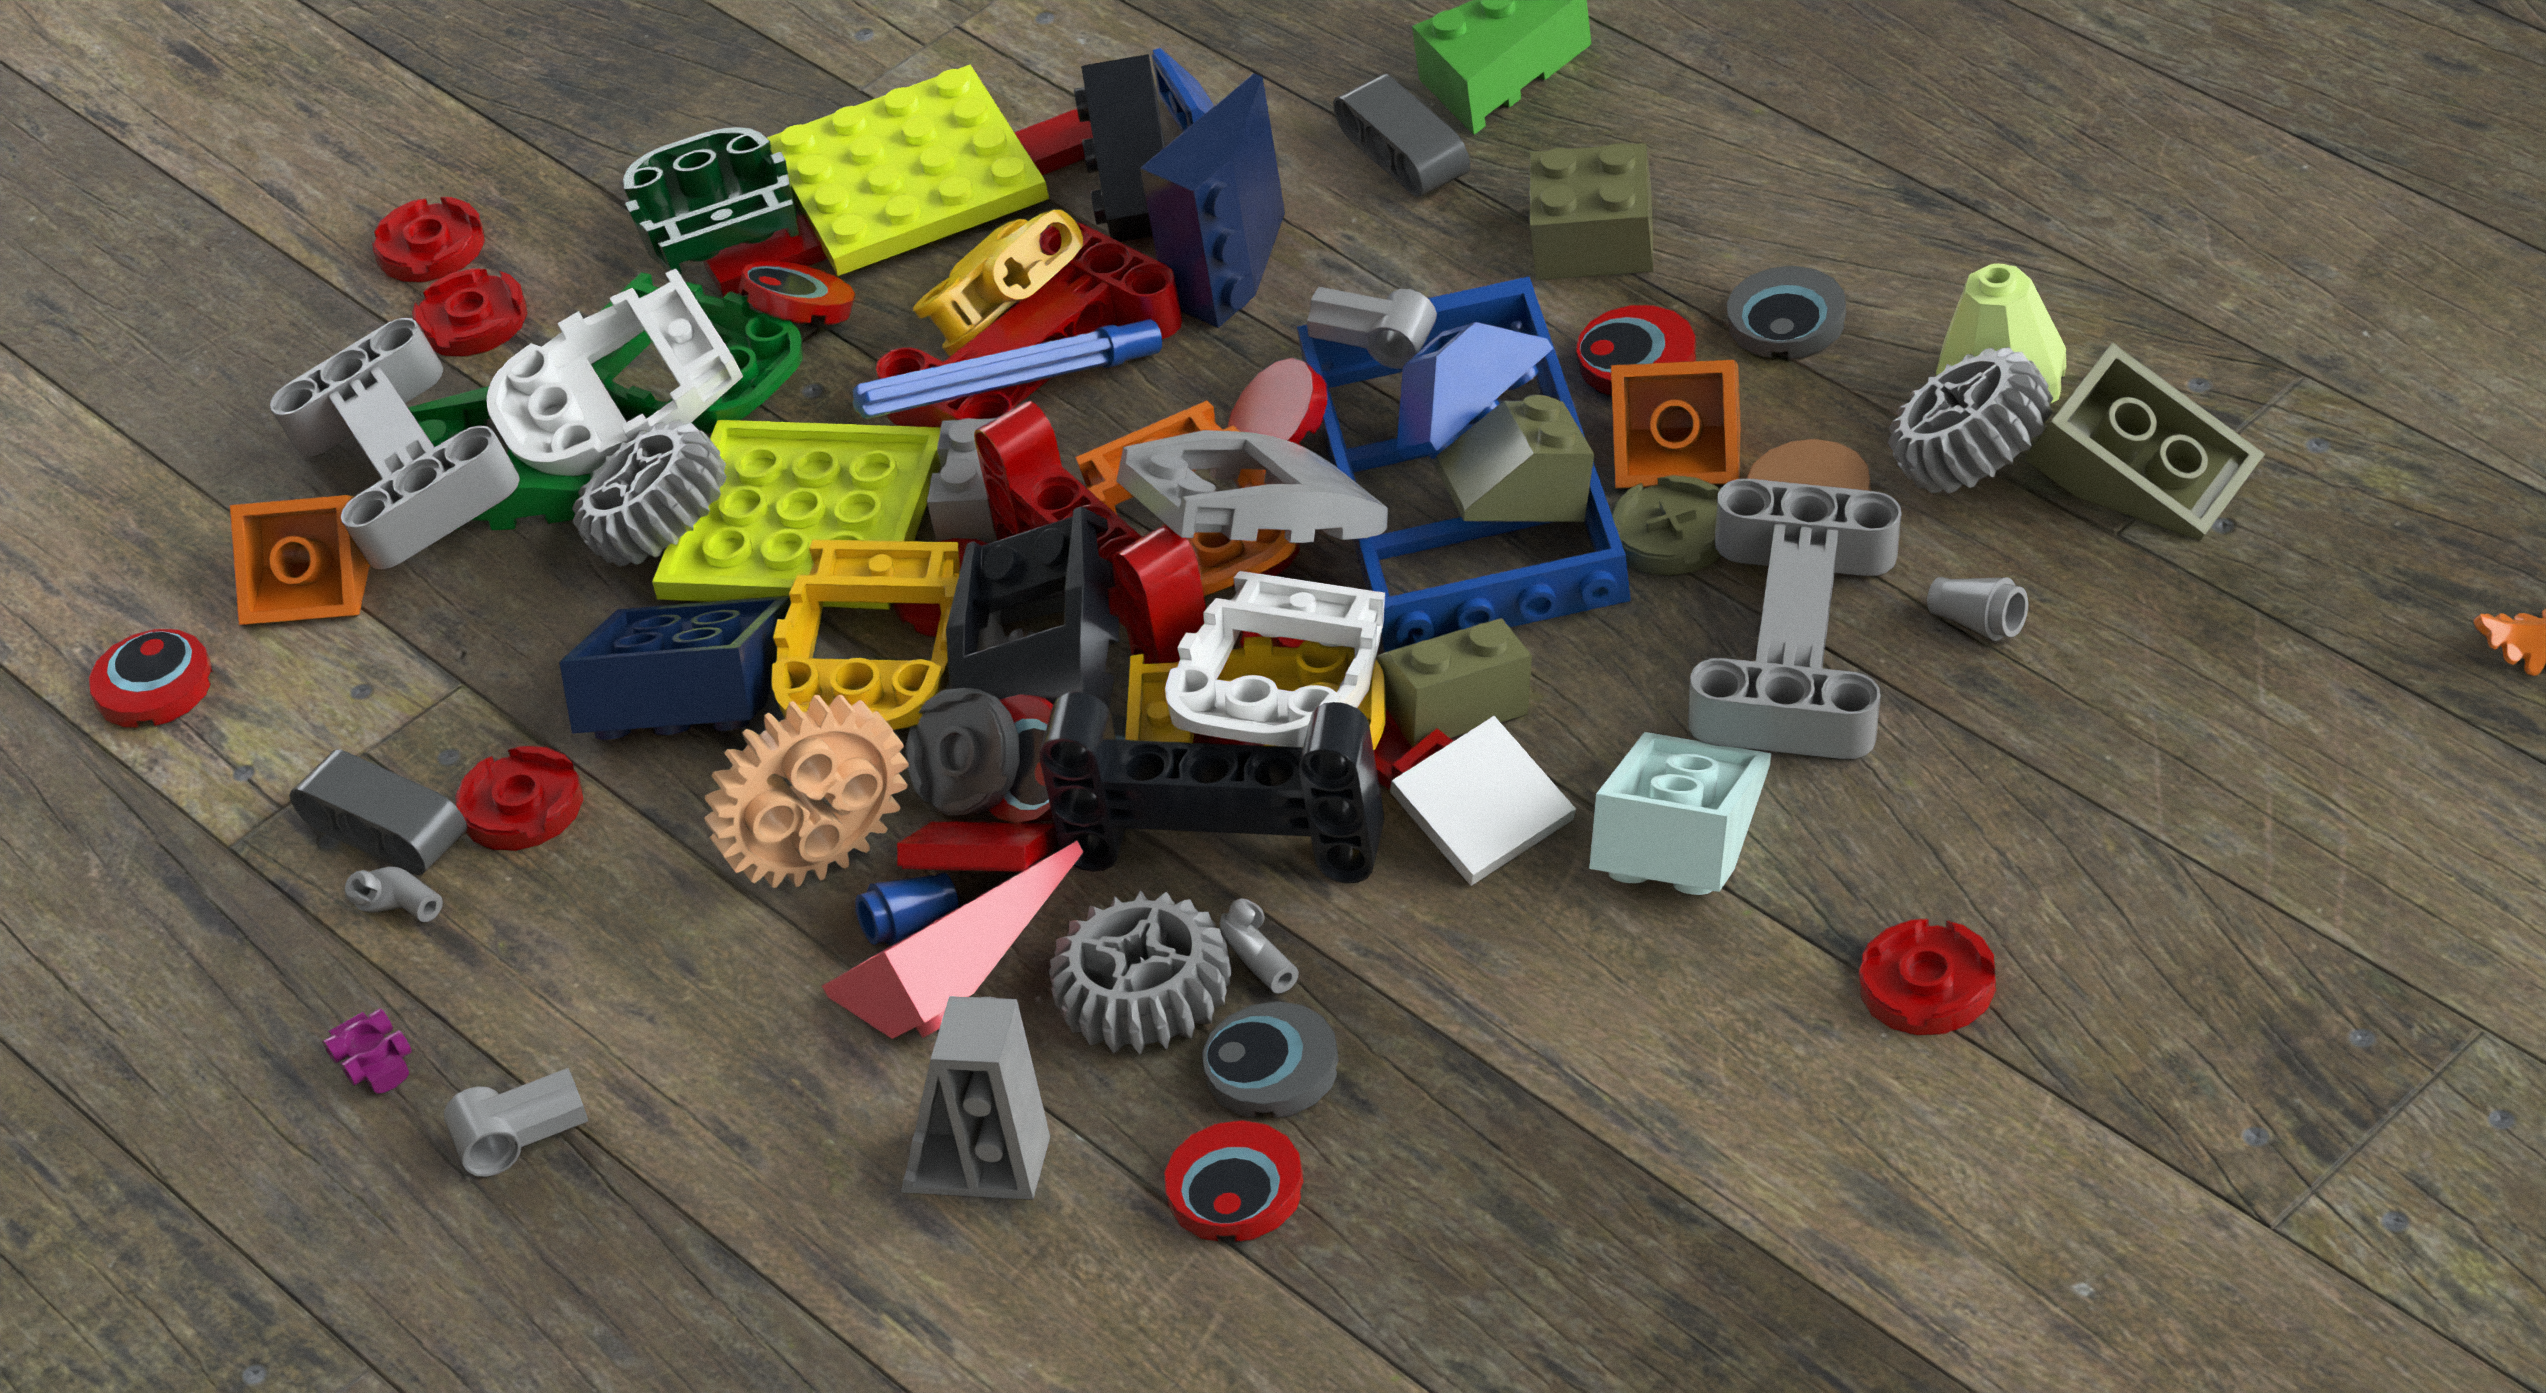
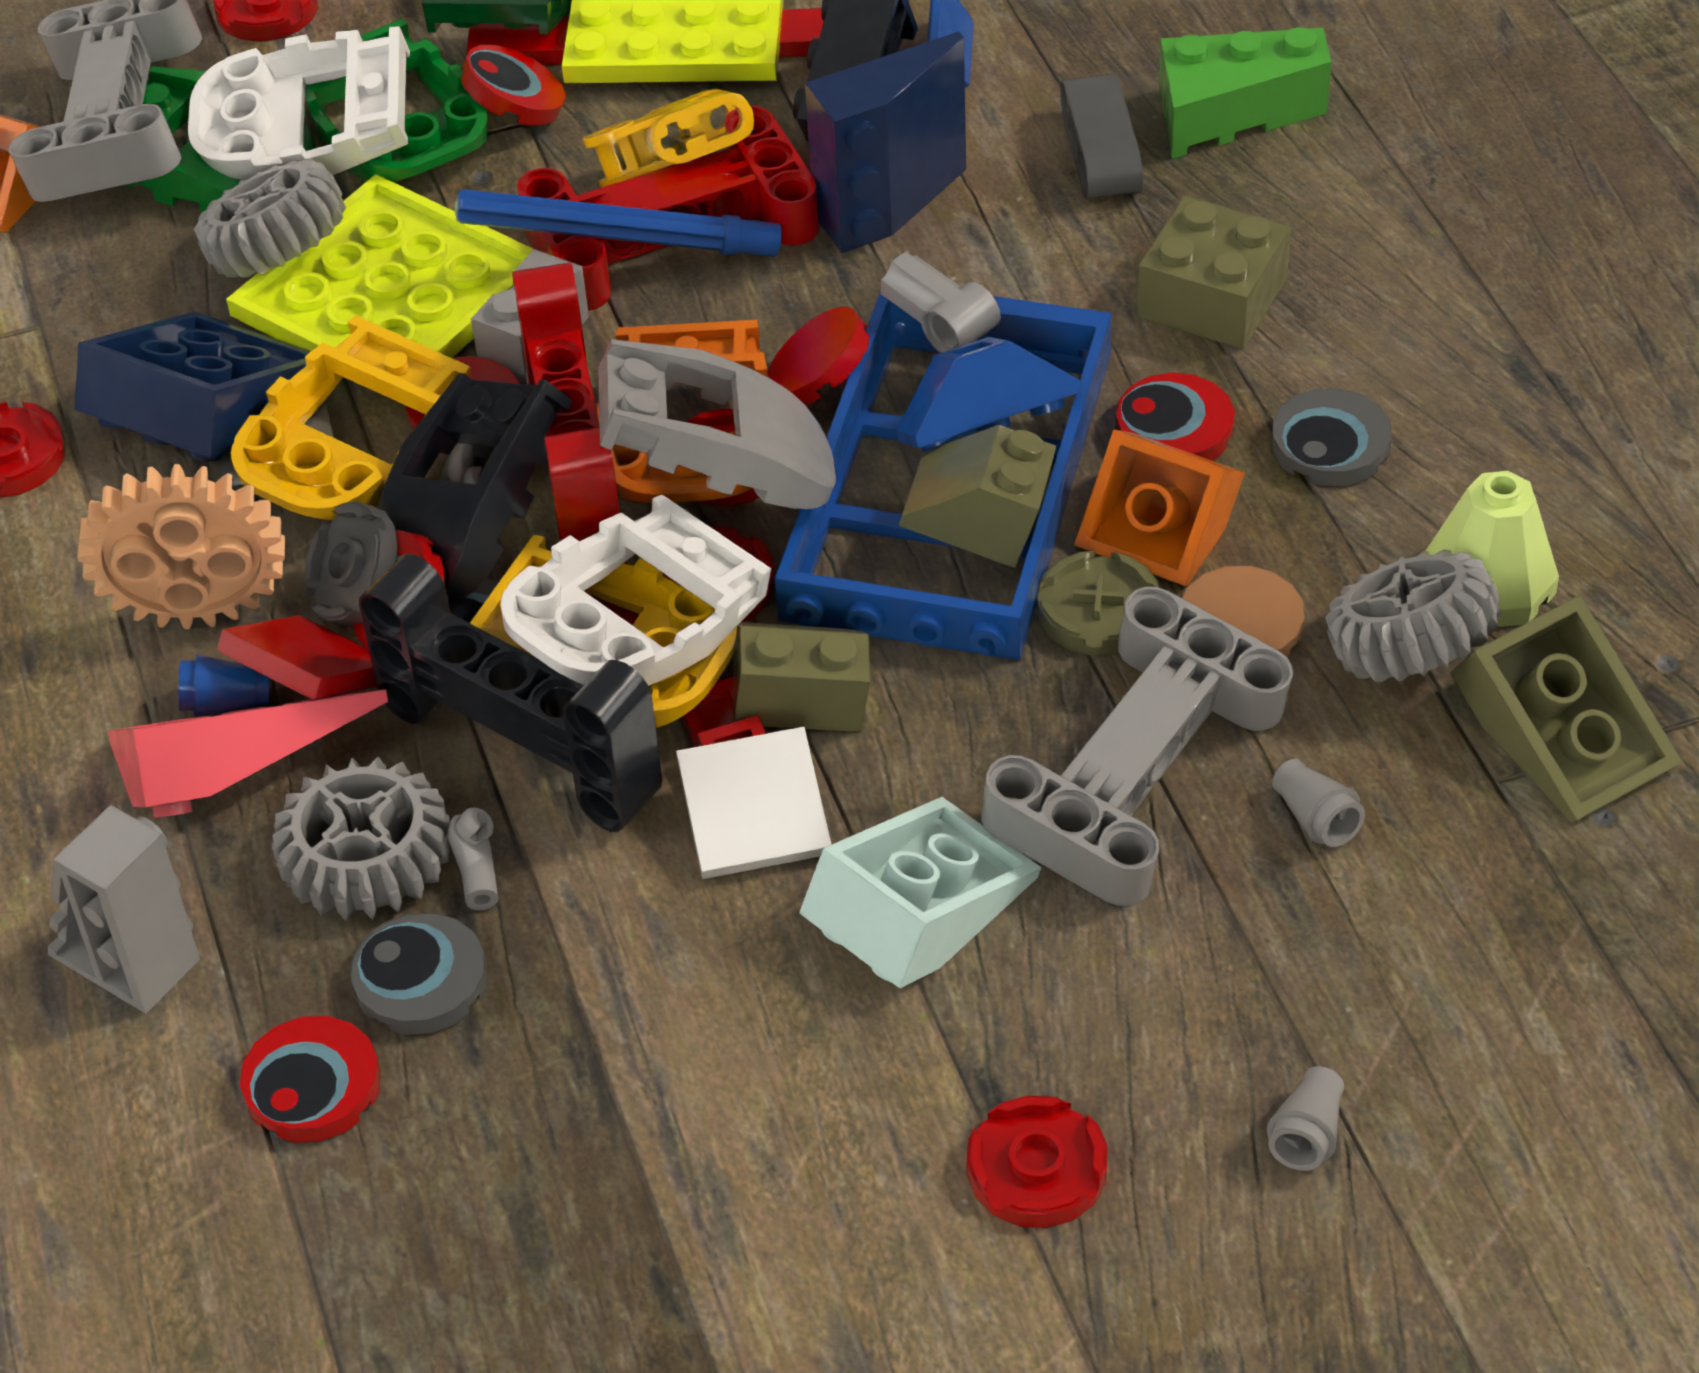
camera: 20 degrees right, 5 degrees up
(2139, 851) = (1307, 1122): none -> light grey cone

